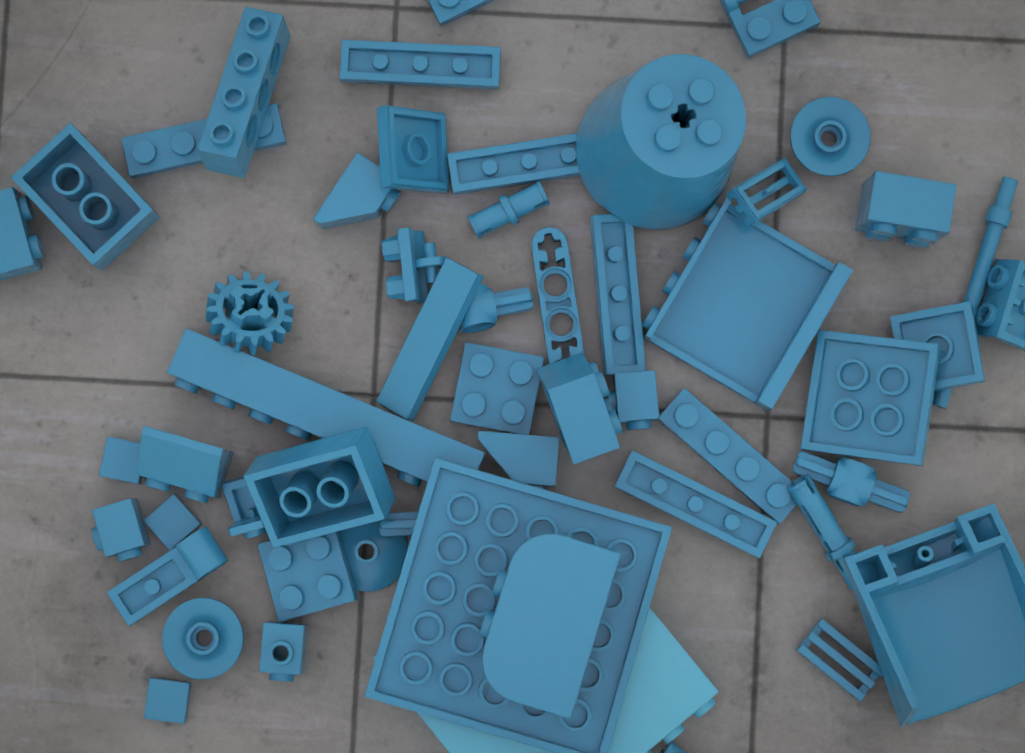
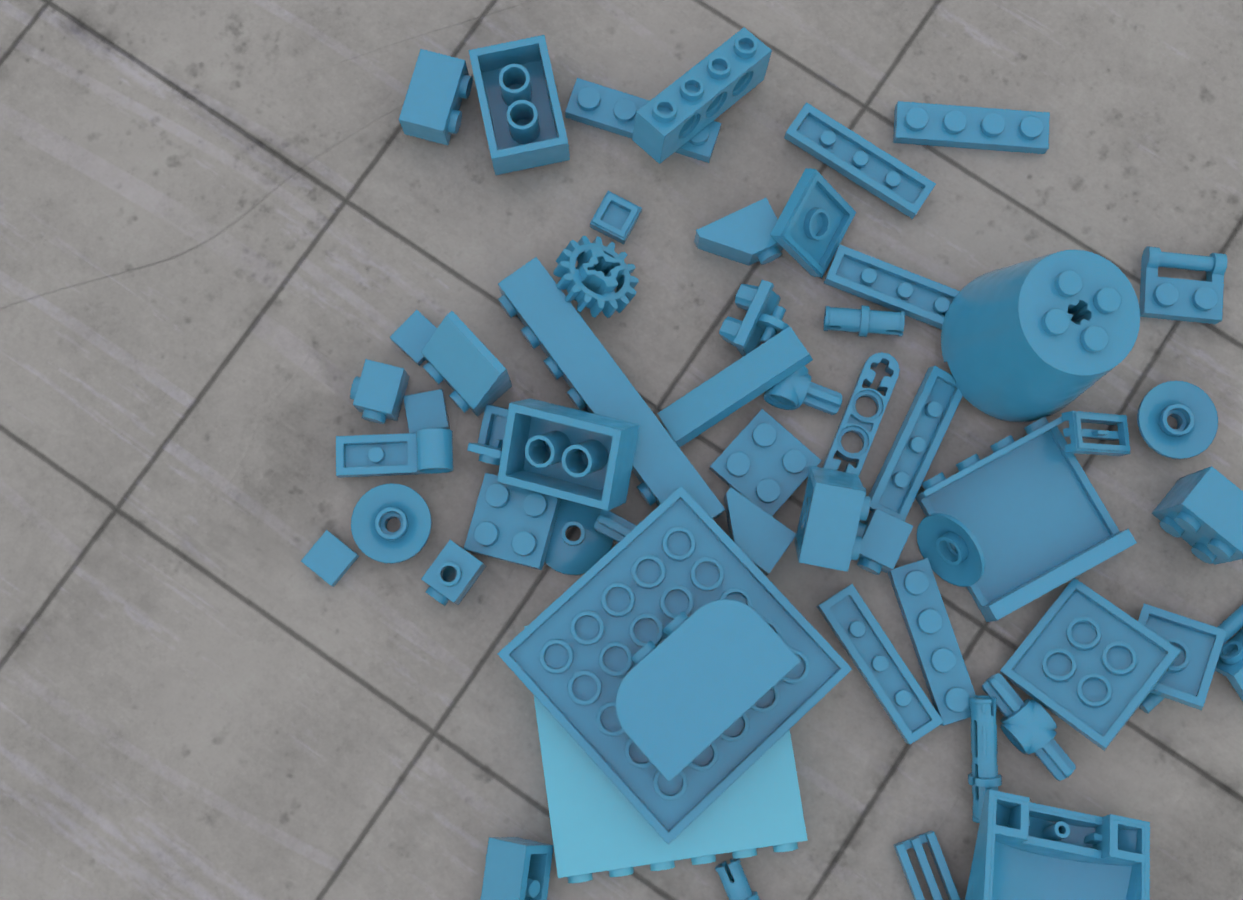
camera: 30 degrees right, 5 degrees down
(233, 245) = (615, 217): none -> dark azure tile
(698, 371) = (951, 549): none -> dark azure dish

